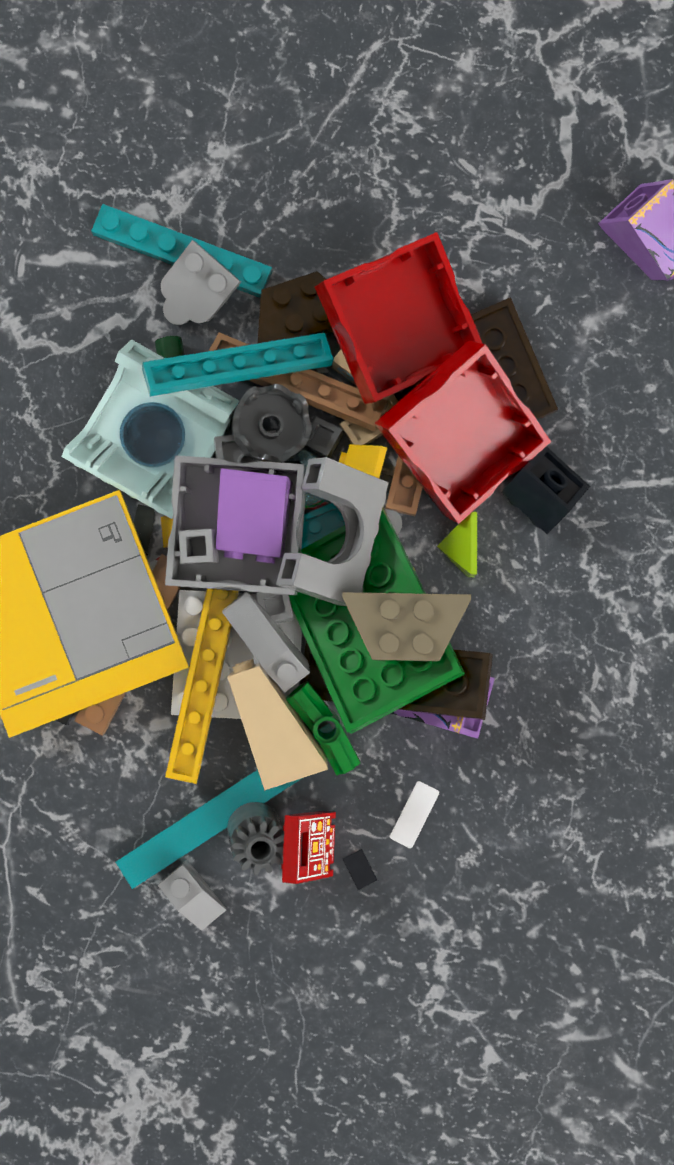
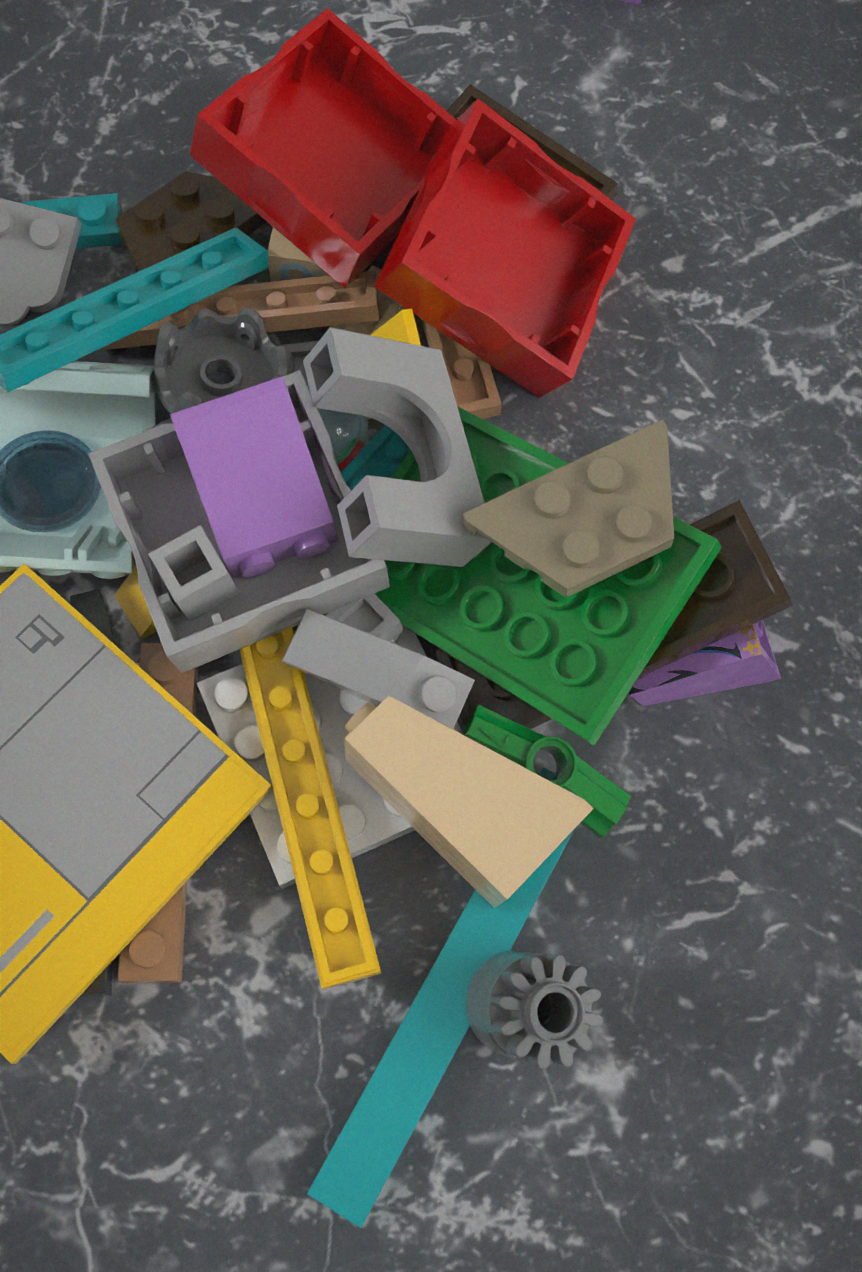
camera: 25 degrees left, 15 degrees down
(192, 896) = (474, 1181): light grey slope -> none
(317, 846) = (625, 974): red container -> none
(360, 869) = (725, 981): black sticker -> none
(414, 814) = (757, 845): white sticker -> none
(461, 545) = (592, 411): lime slope -> none
(545, 490) = (663, 295): black slope -> none

